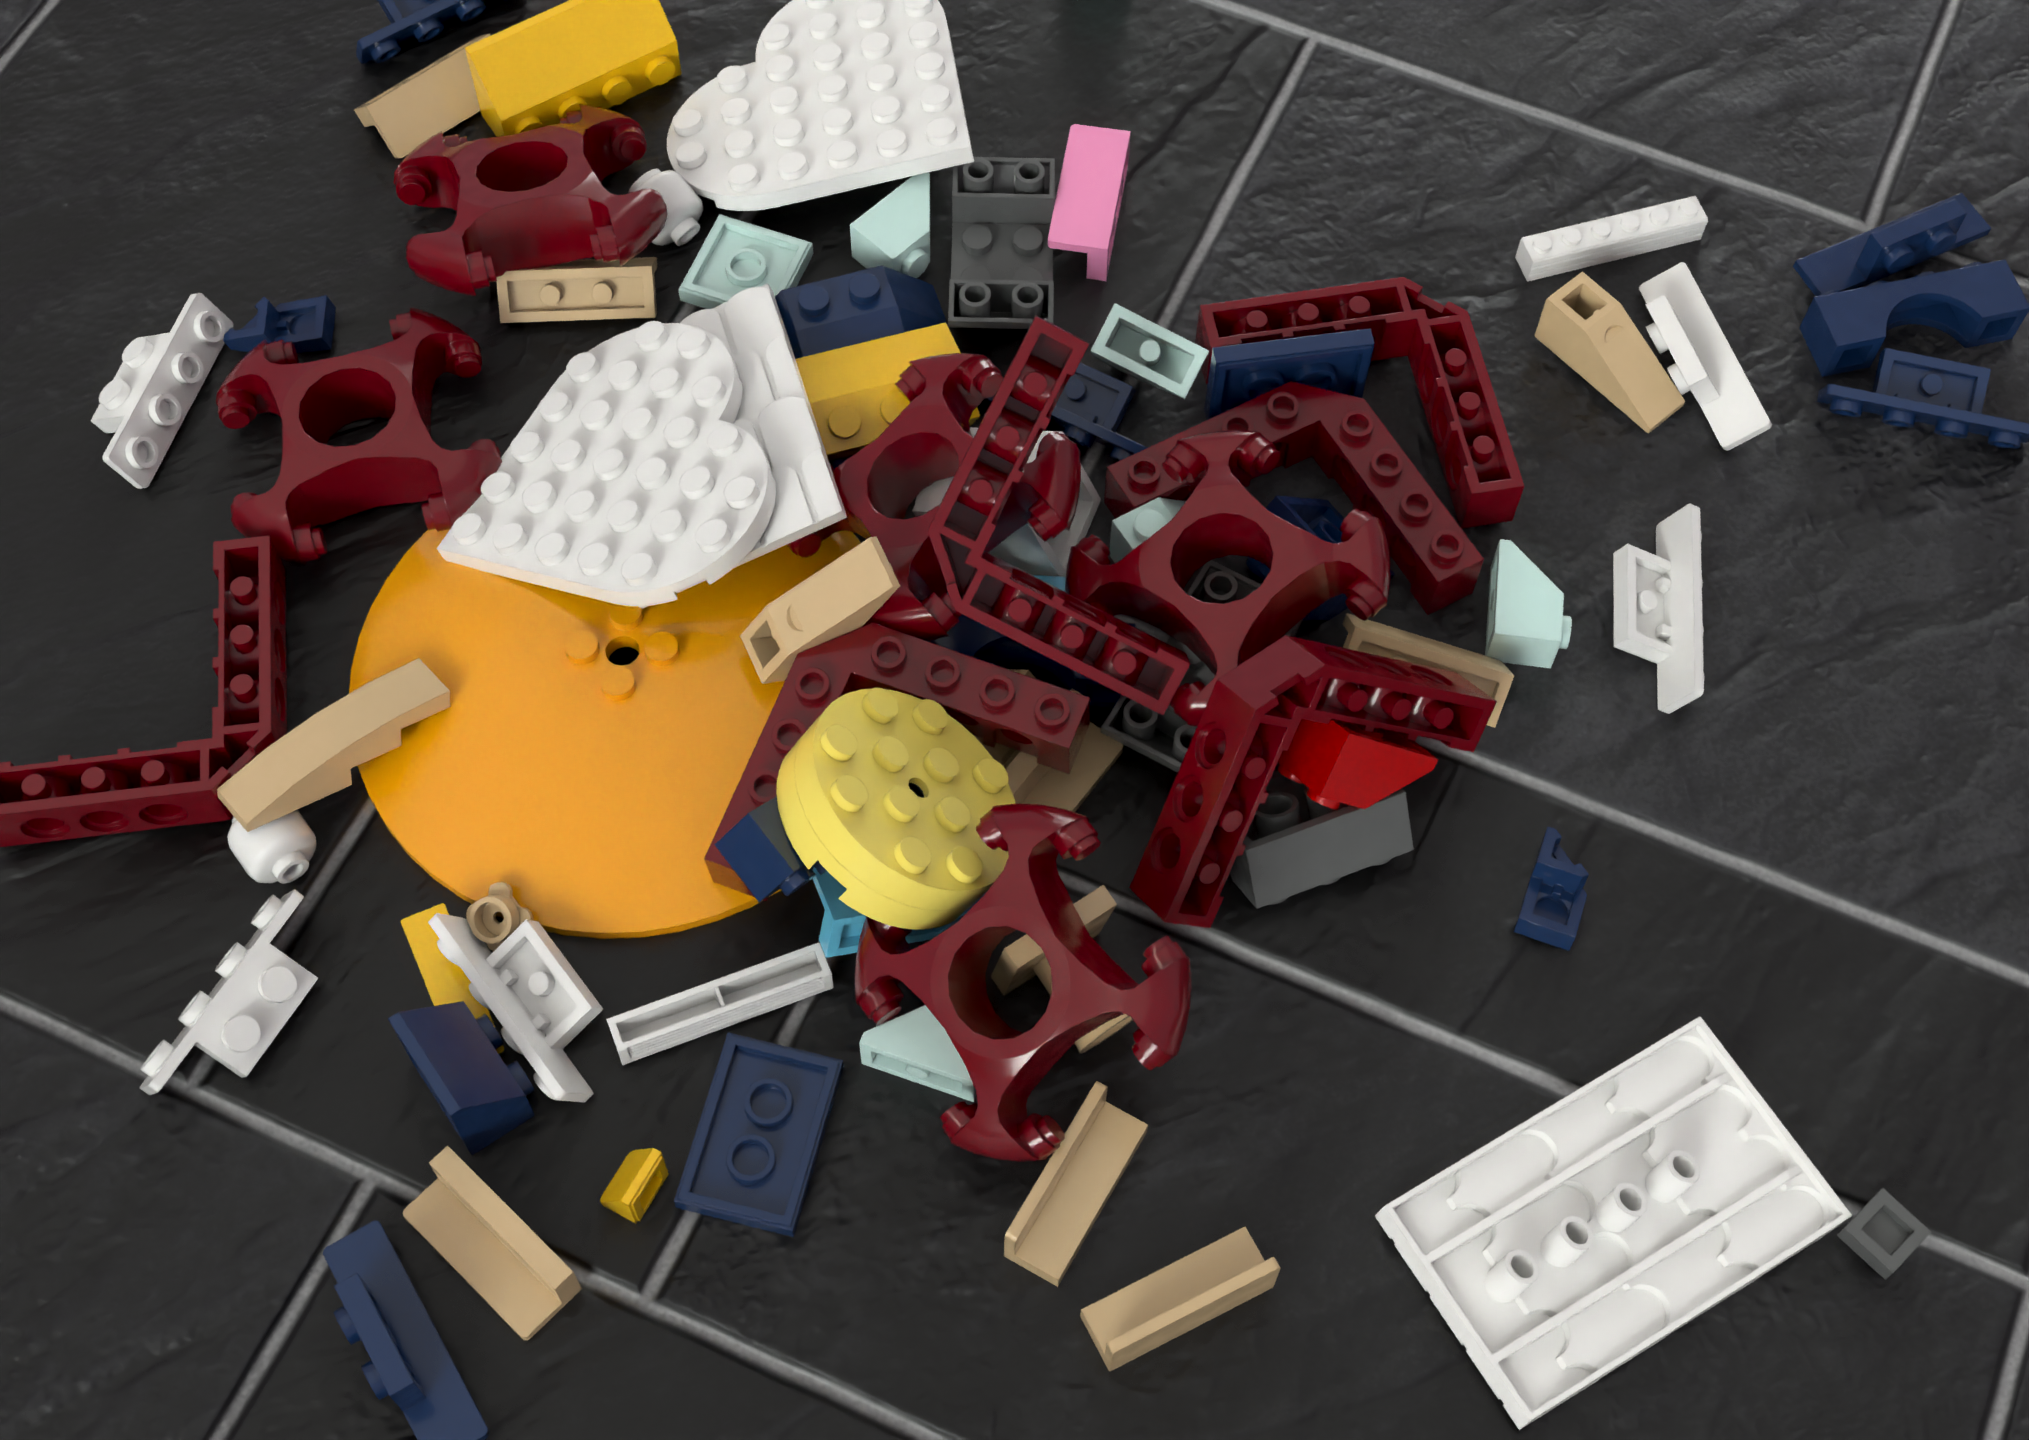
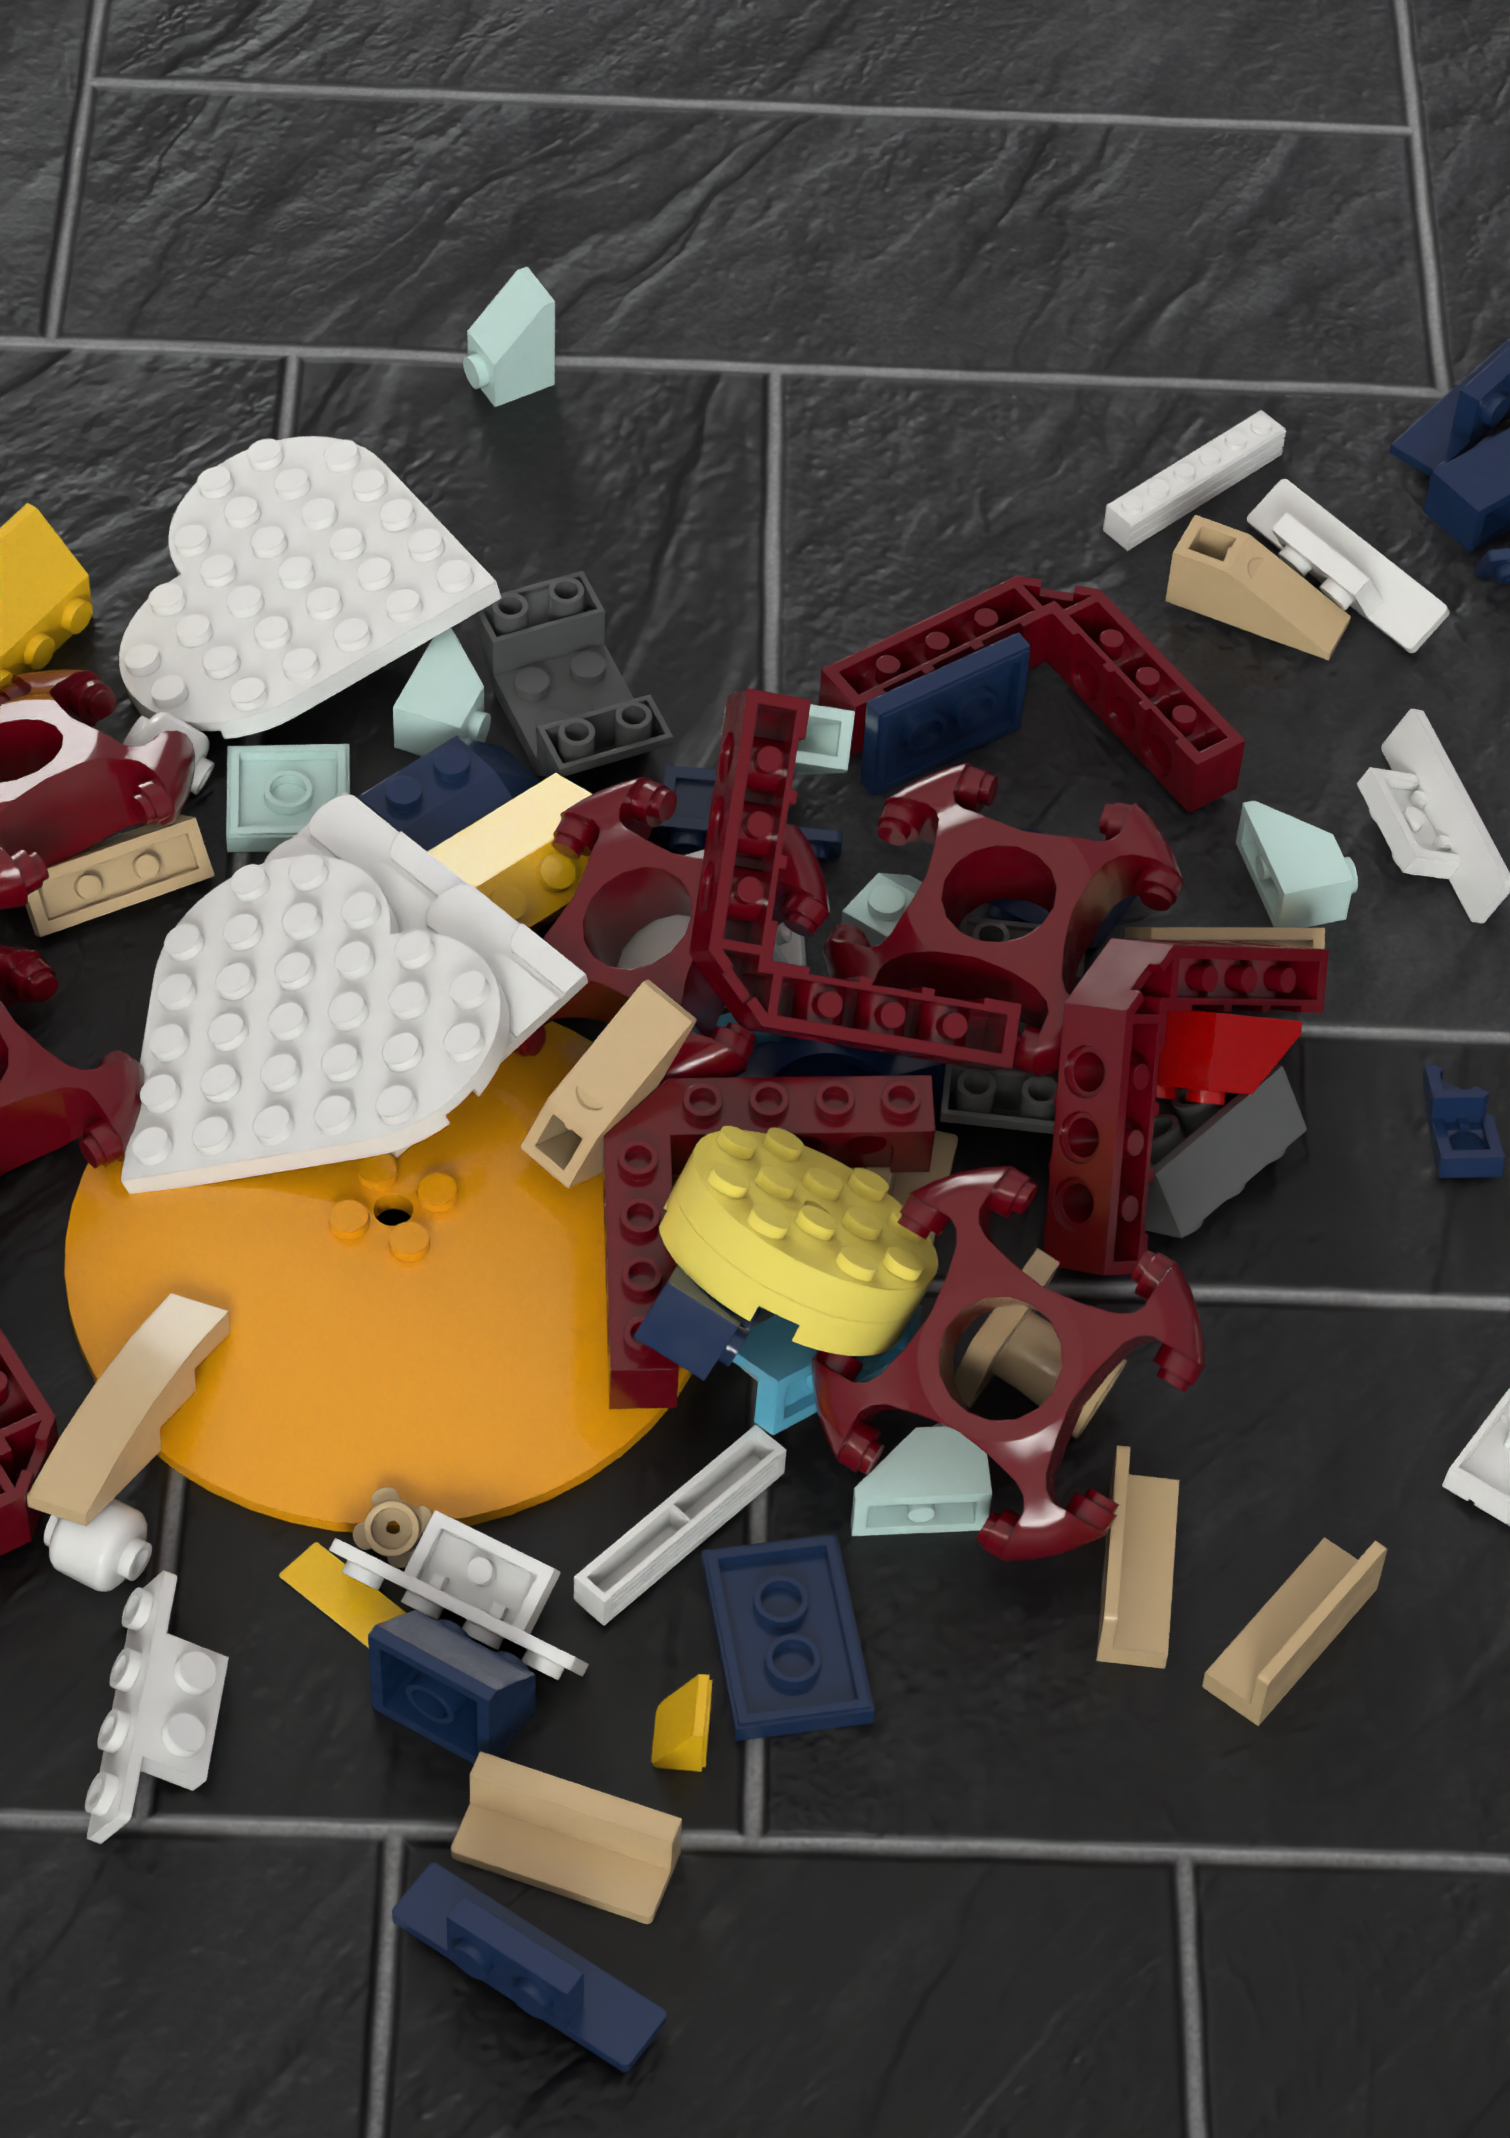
camera: 25 degrees left, 10 degrees down
(1090, 195) = (635, 599): bright pink panel -> none
(1358, 454) = (1040, 768): dark red brick -> none

